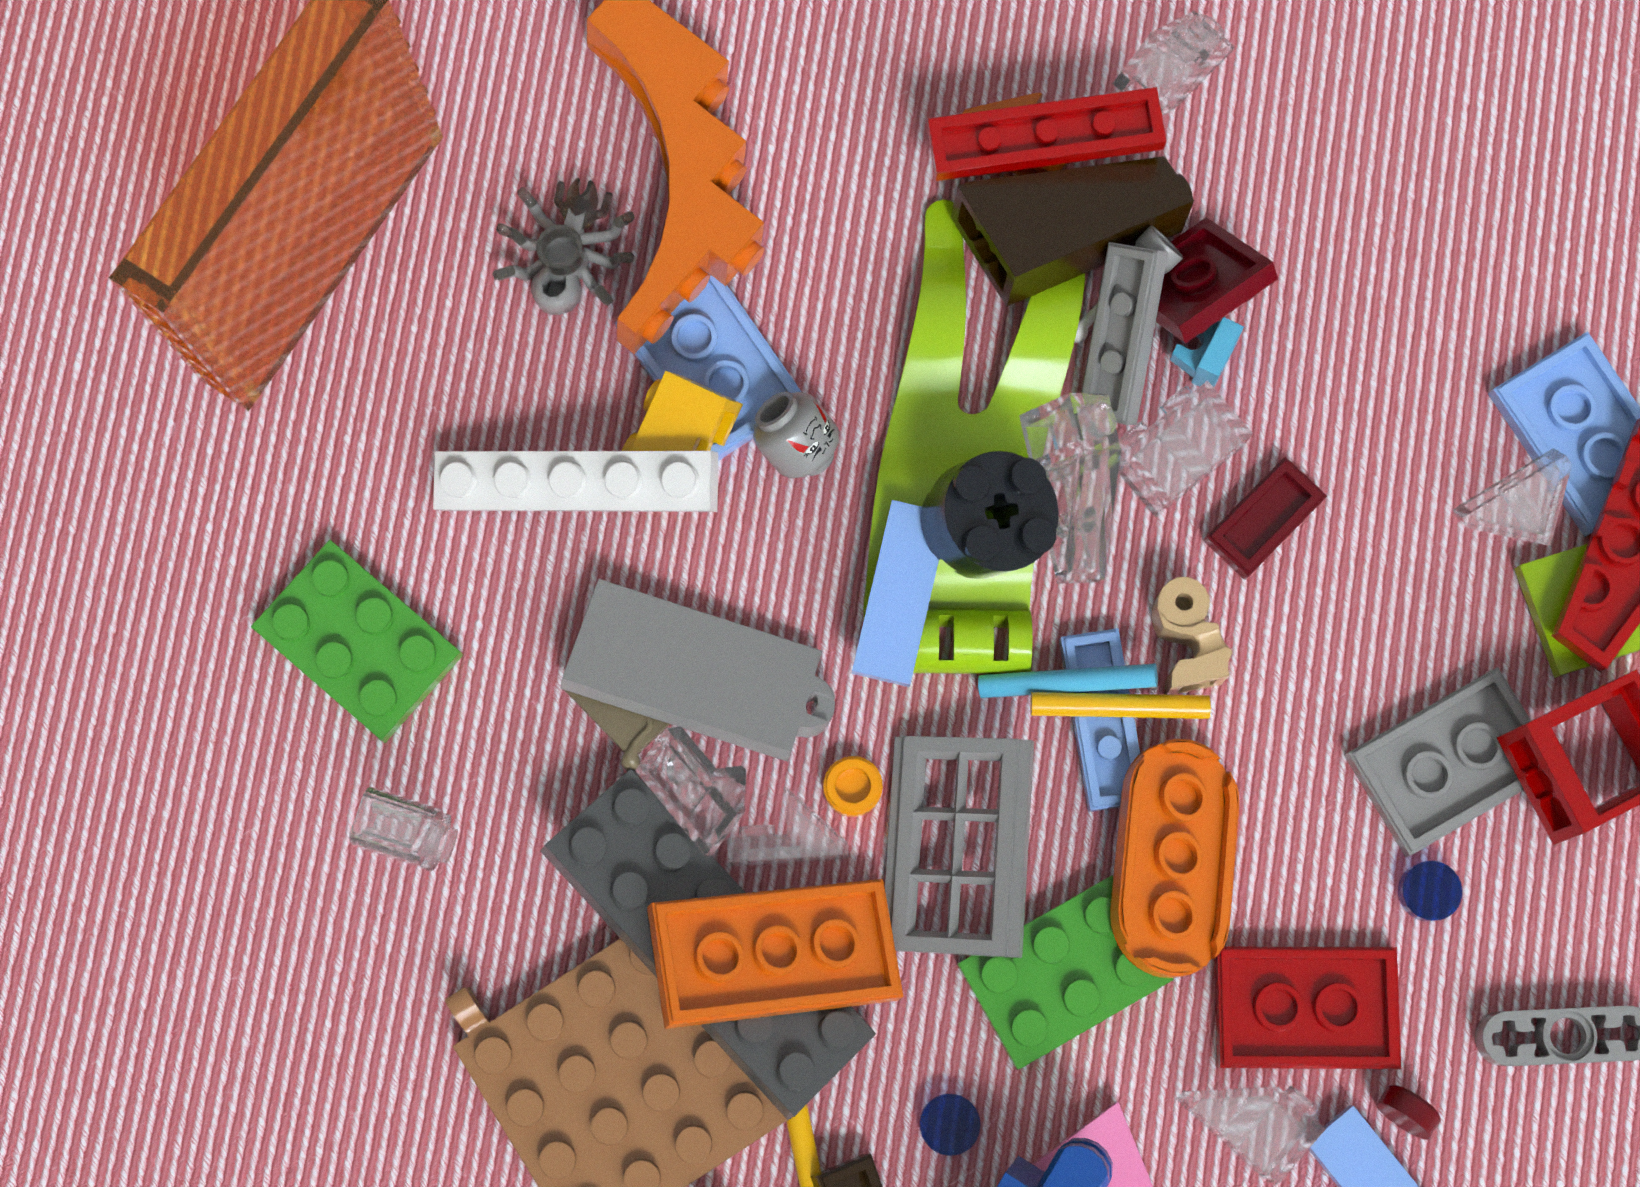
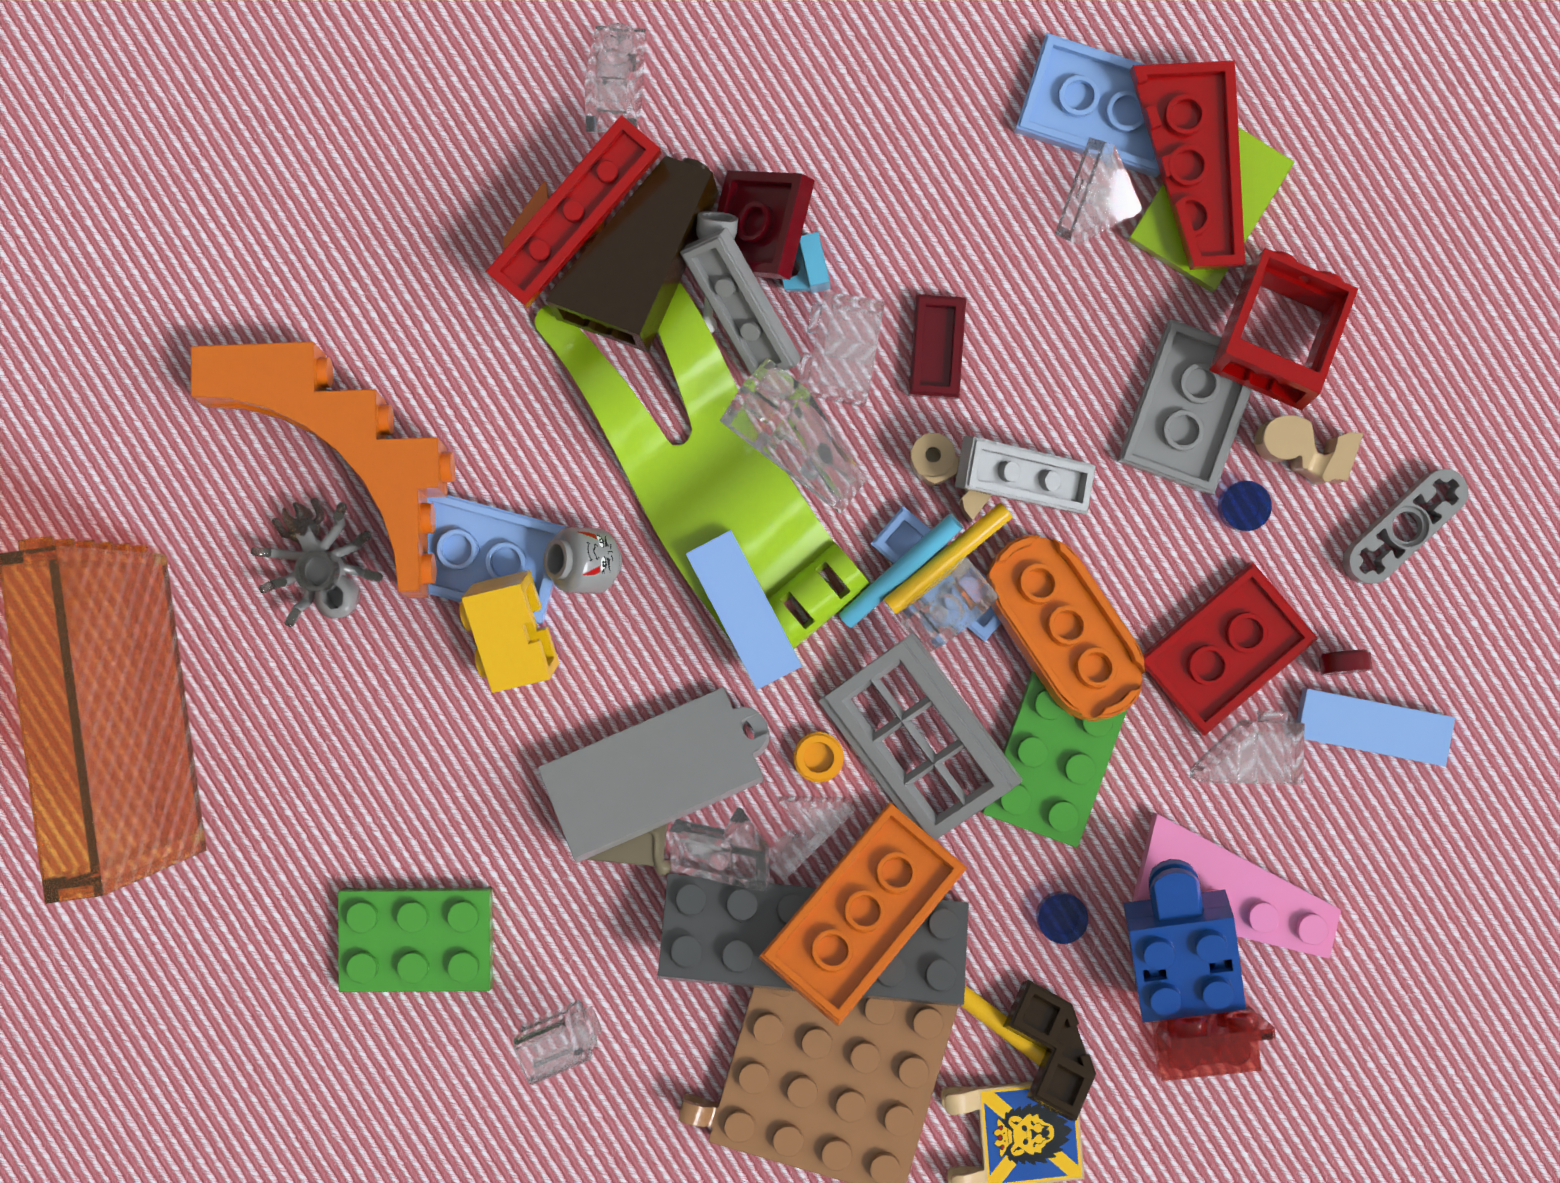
camera: 40 degrees left, 10 degrees up
(576, 481) = (467, 718): white plate -> none
(1021, 507) = (789, 505): black brick -> none
(1084, 742) = (947, 606): none -> clear slope
(1252, 688) = (1024, 475): none -> tile
(1522, 864) = (1294, 439): none -> tan leg

